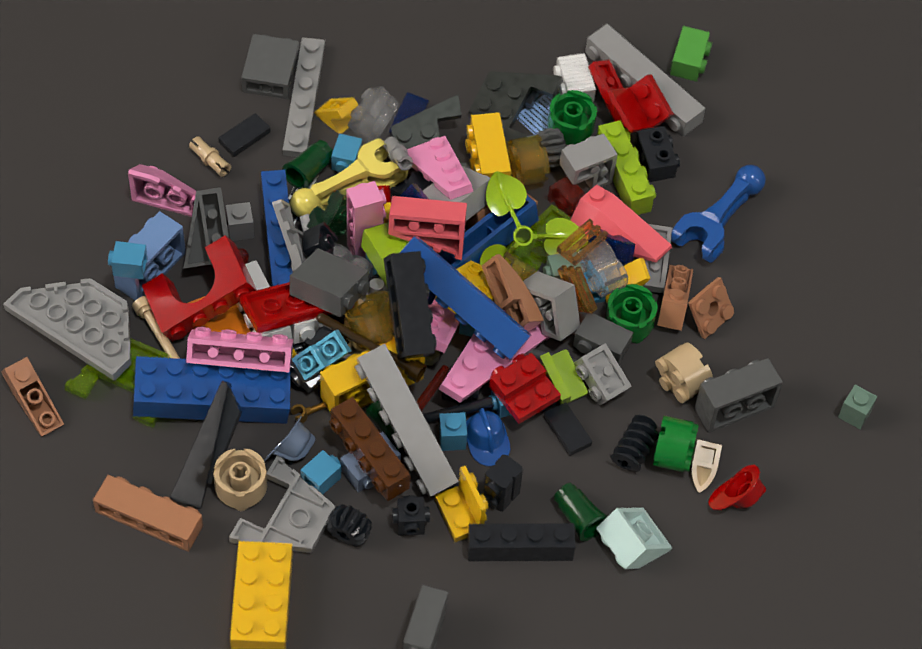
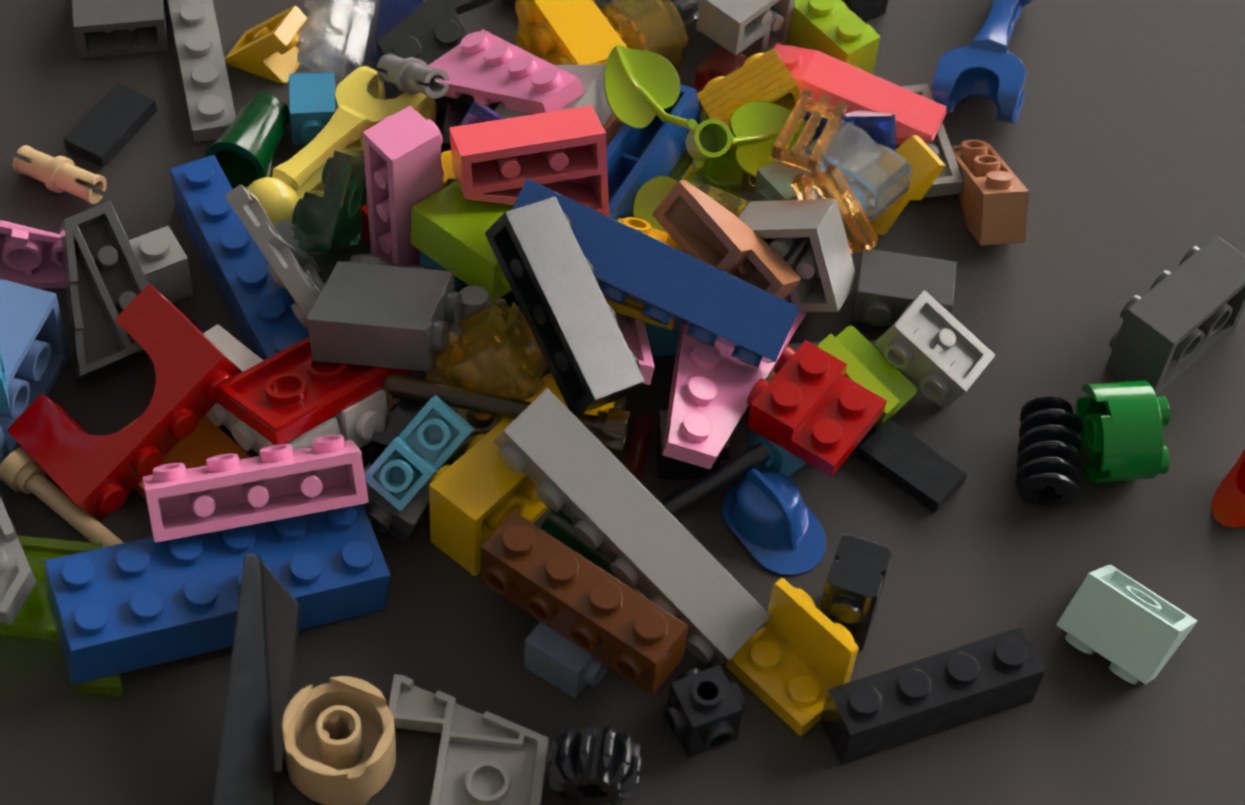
camera: 20 degrees left, 5 degrees down
(295, 444) = (421, 638): sand blue piece -> none
(306, 411) = (416, 574): pearl gold hand -> none
(319, 237) = (325, 247): black brick -> none
(322, 472) = (495, 678): dark azure brick -> none
(452, 431) = (716, 523): dark azure brick -> none
(574, 207) = (759, 79): none -> yellow brick
(579, 511) = (1009, 601): dark green plant -> none
(633, 310) = (934, 224): green brick -> none
(682, 371) = (1073, 305): tan brick -> none
(704, 463) = (1186, 455): tan plate -> none
(711, 307) = (1058, 190): nougat piece -> none

